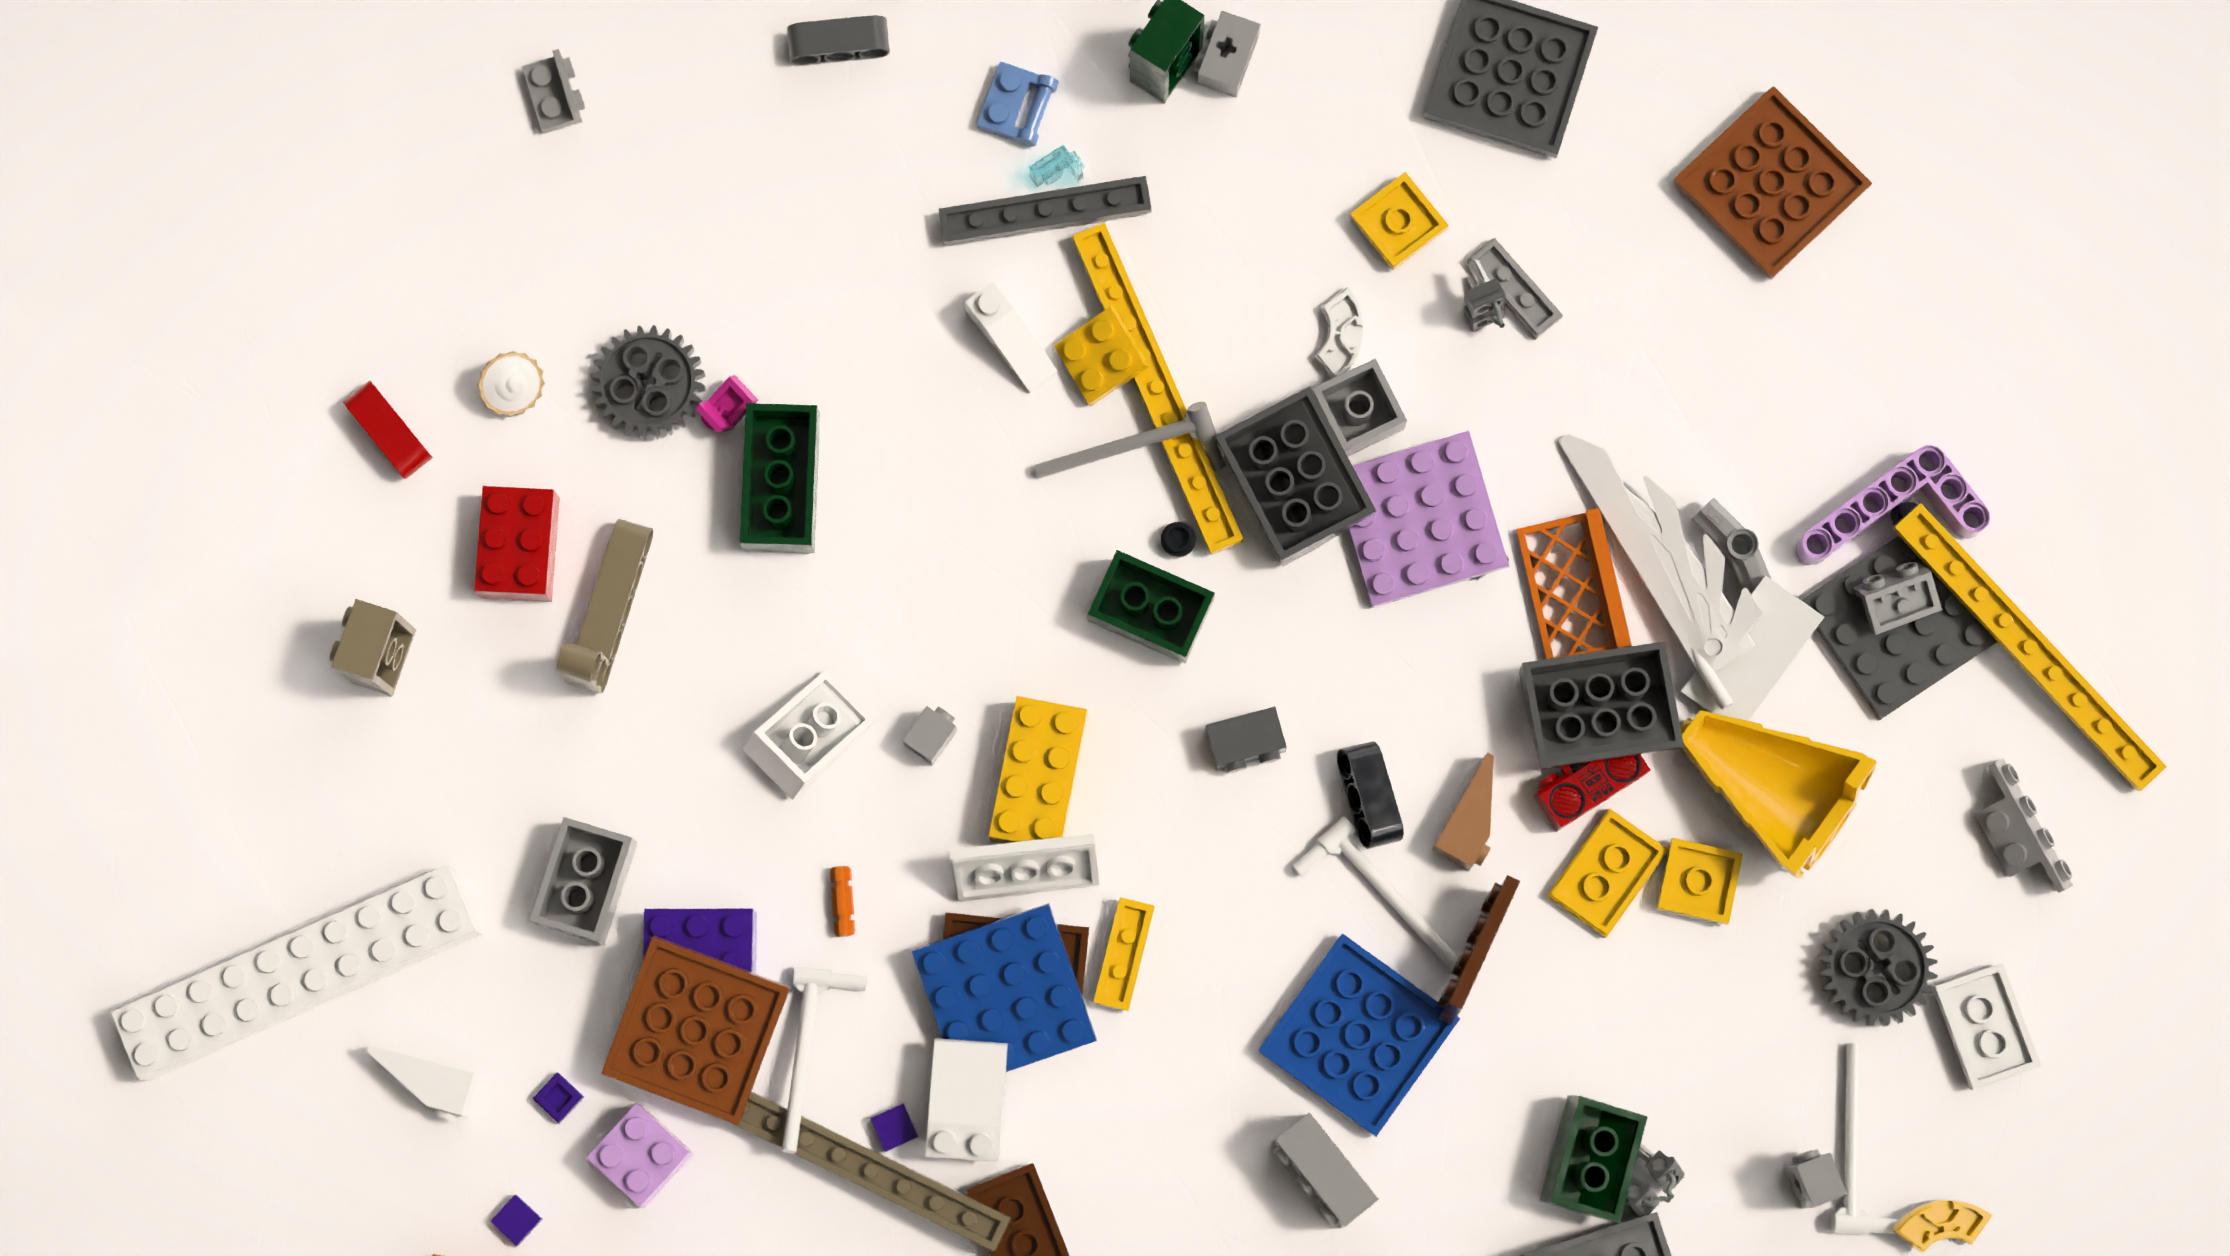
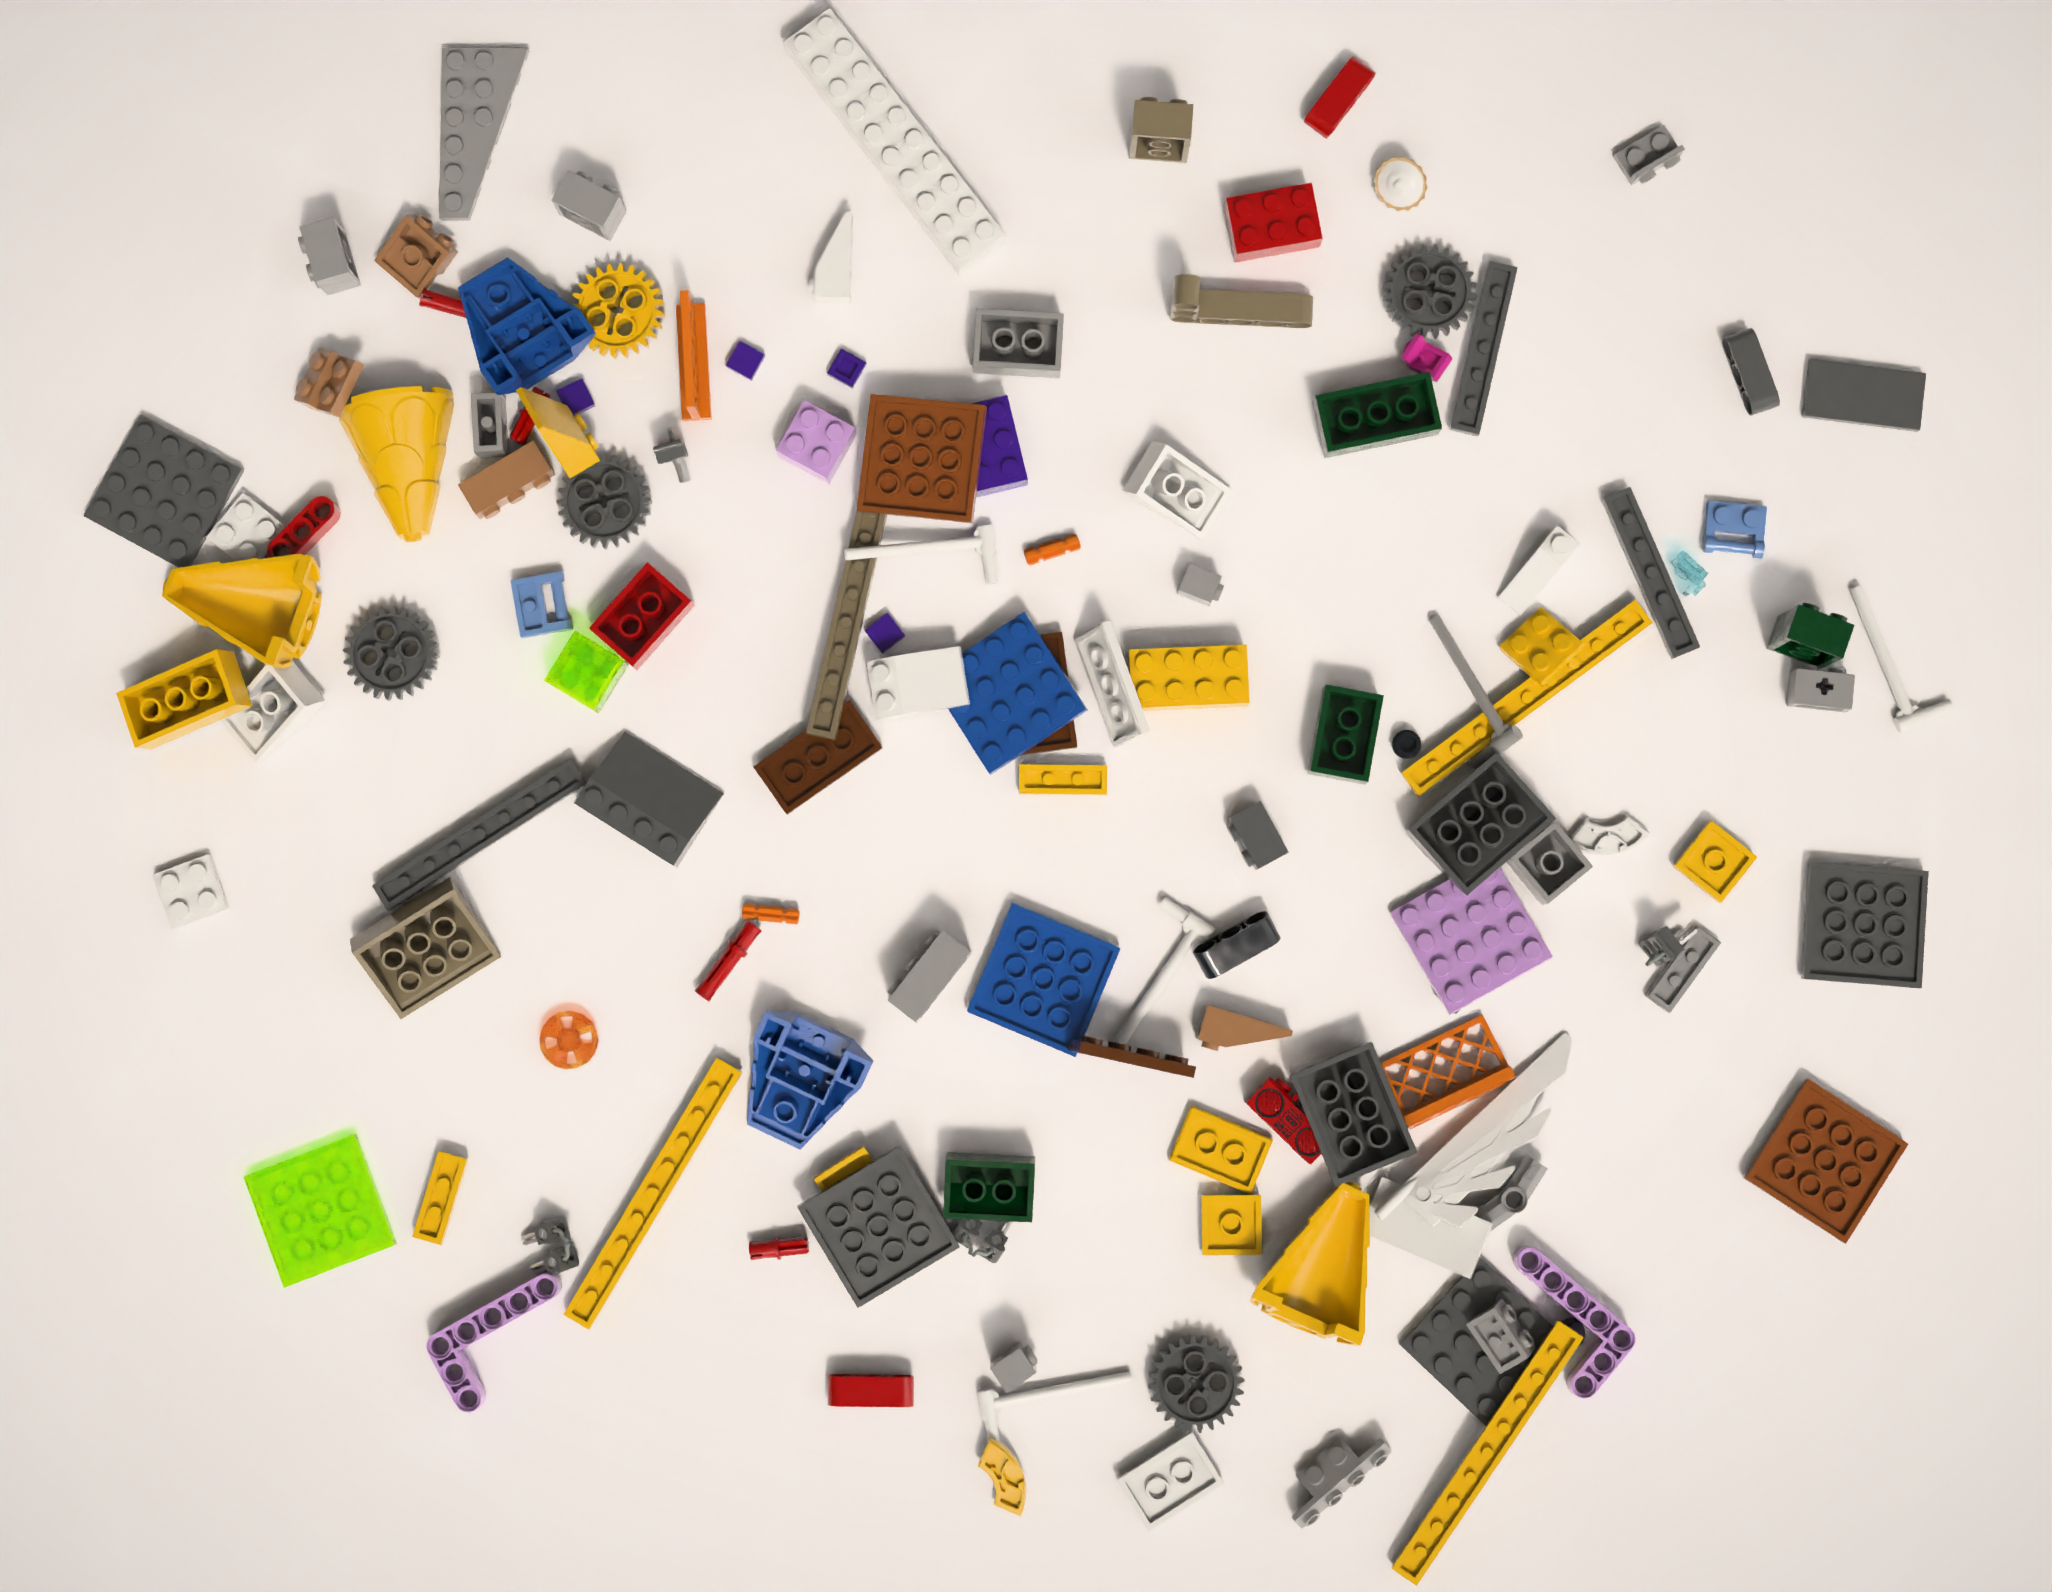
camera: 75 degrees right, 5 degrees up
(732, 336) = (1483, 348): none -> dark grey plate

